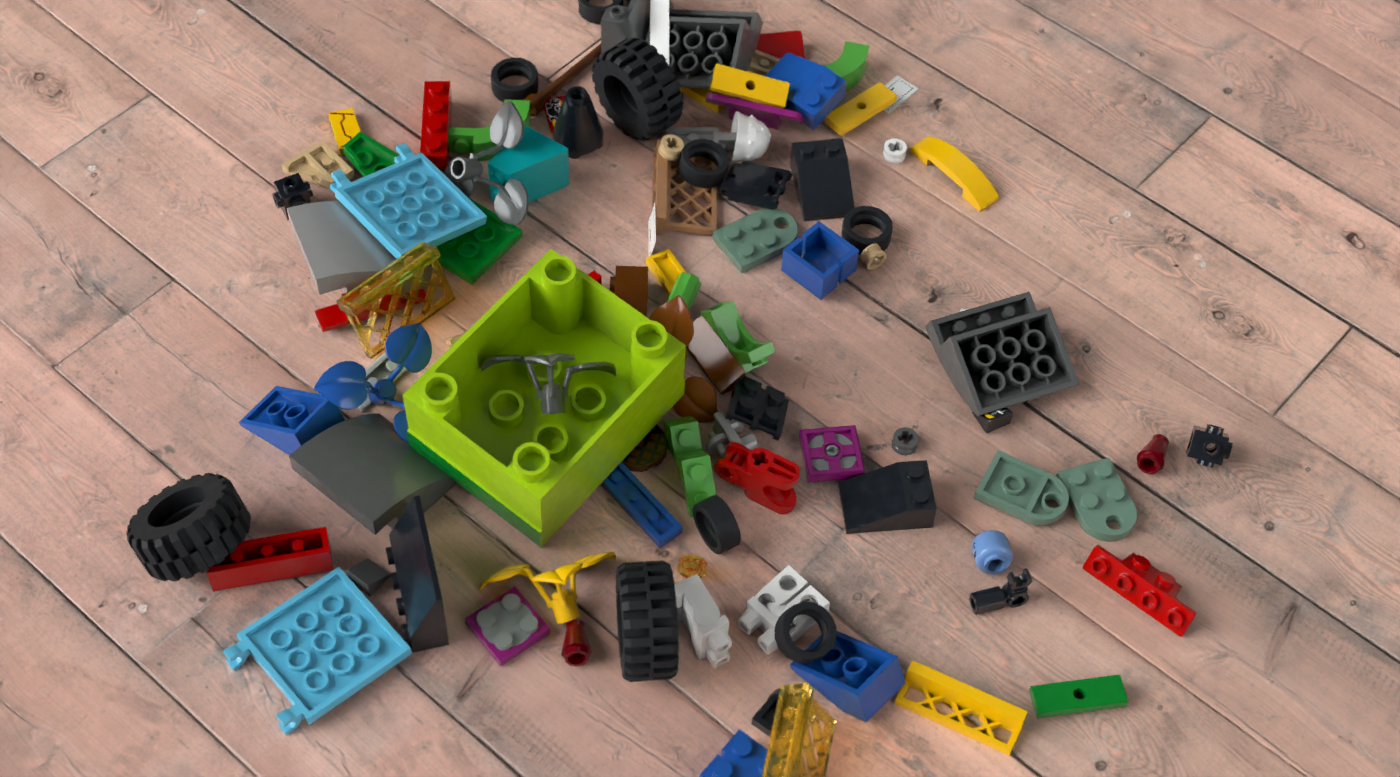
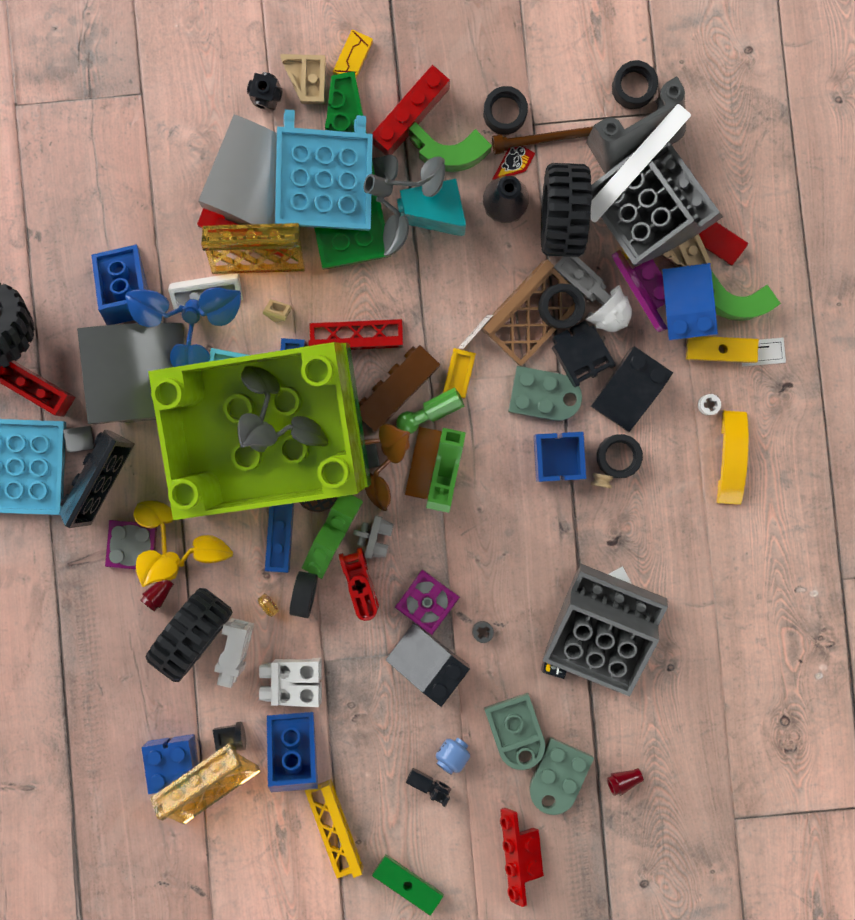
camera: 45 degrees right, 35 degrees up
(673, 141) = (552, 281): tan bush -> none
(758, 407) = (411, 531): black plate -> none
(764, 89) = (653, 290): yellow tile -> none
(826, 625) = (277, 731): black tyre -> none
(1201, 438) = (661, 810): black brick -> none

